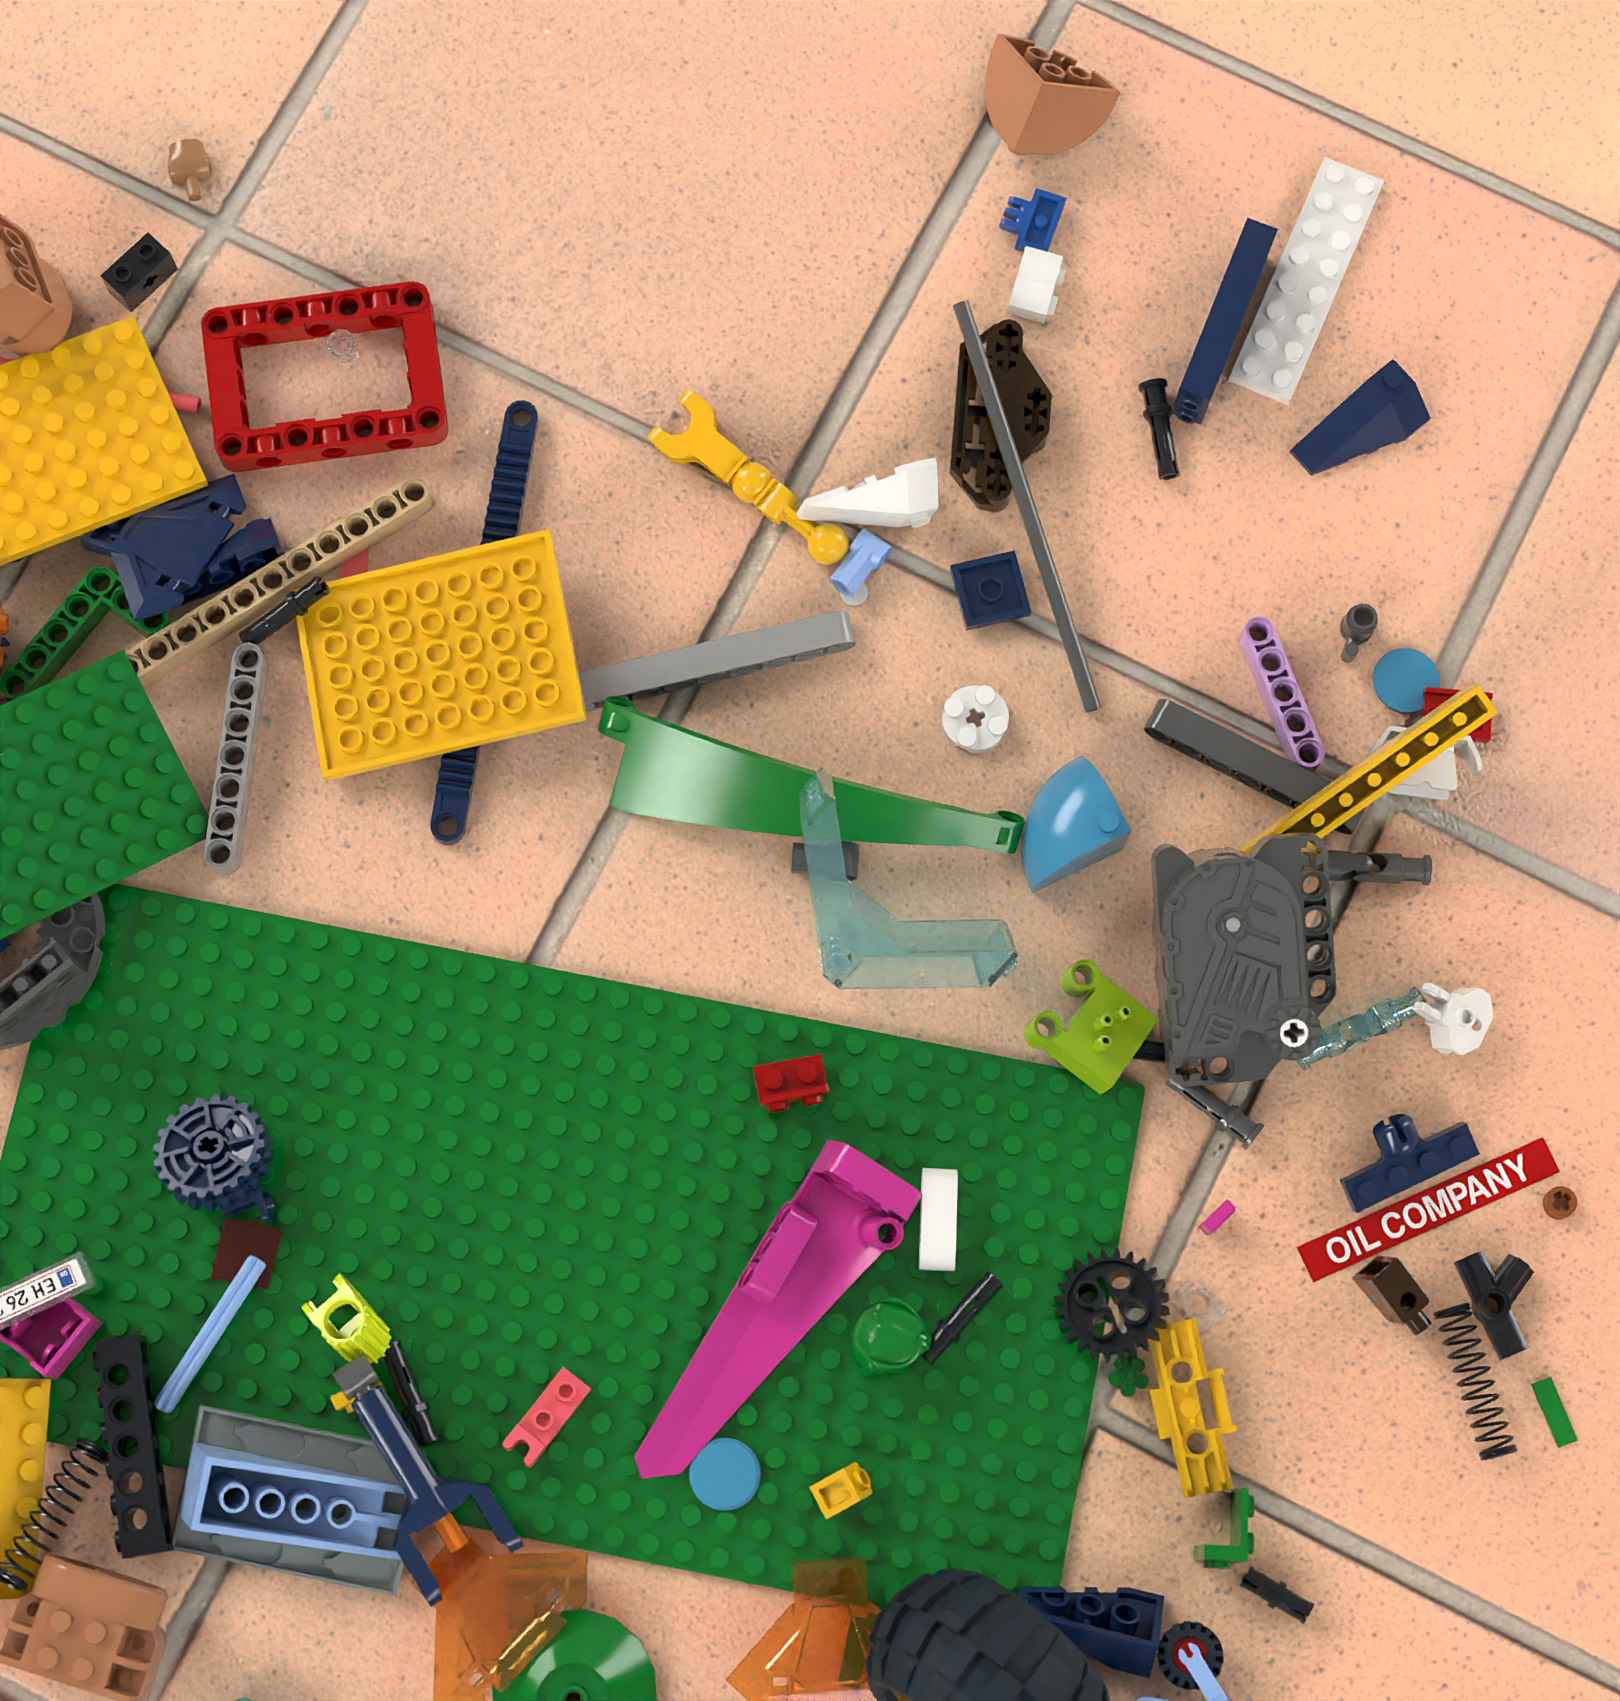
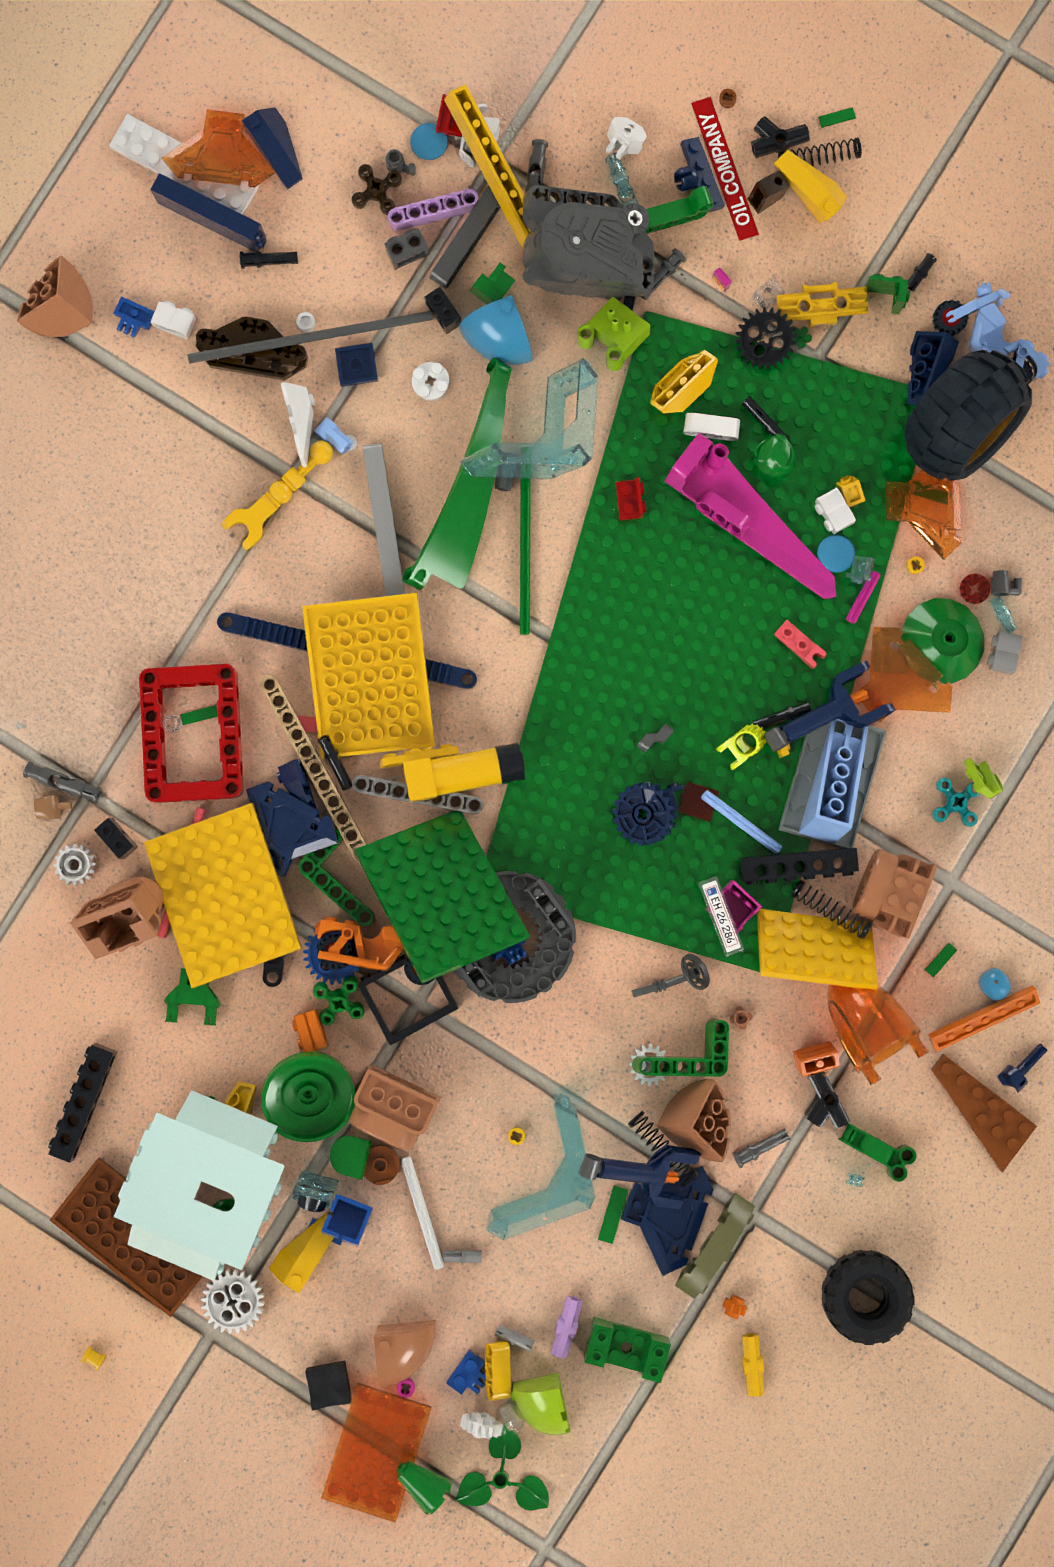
camera: 80 degrees left, 10 degrees up
(89, 197) = (65, 860): none -> white gear
(228, 191) = (64, 783): none -> dark grey piece
(255, 765) = (463, 772): none -> yellow piece
(297, 747) = (392, 760): none -> yellow plate
(356, 1164) = (660, 737): none -> dark grey piece
(359, 386) = (199, 715): none -> green window
(644, 1530) = (862, 598): none -> dark pink axle
(677, 908) = (525, 521): none -> green axle
(693, 1521) = (861, 569): none -> clear light blue bracket
(712, 1618) = (921, 564): none -> yellow bush
(801, 1461) = (835, 511): none -> white brick
(1009, 1158) = (684, 383): none -> yellow wedge
(1058, 501) = (306, 322): none -> white tile
(1102, 726) = (443, 310): none -> black brick
(1151, 808) = (492, 287): none -> green plate
(1197, 658) = (409, 253): none -> dark grey brick
(1313, 607) = (371, 193): none -> dark brown gear
(1328, 1120) = (680, 211): none -> green beam
(1332, 331) = (219, 153): none -> clear orange plate
(1408, 1377) = (813, 187): none -> yellow wedge

